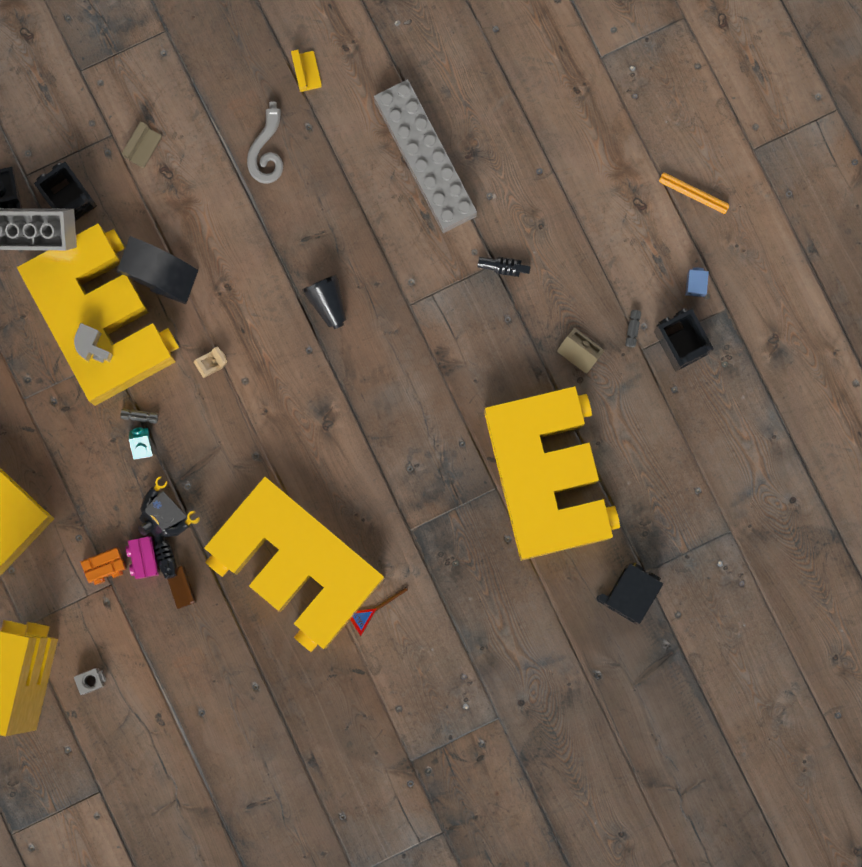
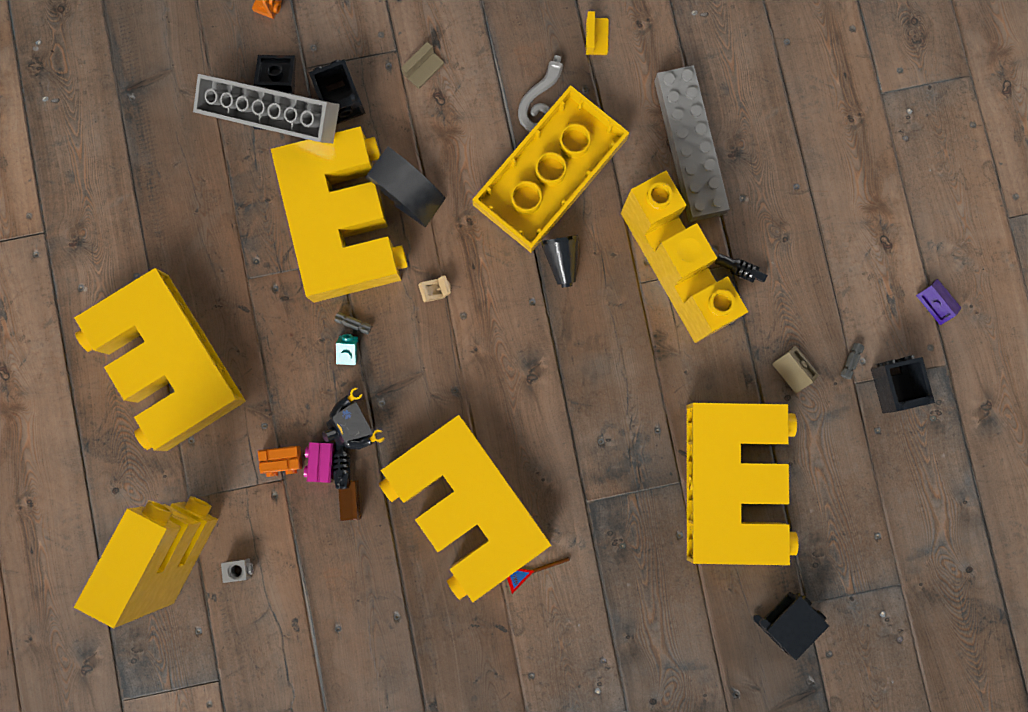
camera: 15 degrees right, 0 degrees up
(85, 344) = (317, 238): light grey brick -> none
(293, 216) = (550, 168): none -> yellow plate
(438, 273) = (680, 258): none -> yellow brick
(694, 193) = (942, 244): light orange axle -> none
(697, 282) = (927, 332): medium blue brick -> none
(703, 249) = (939, 302): none -> dark purple panel

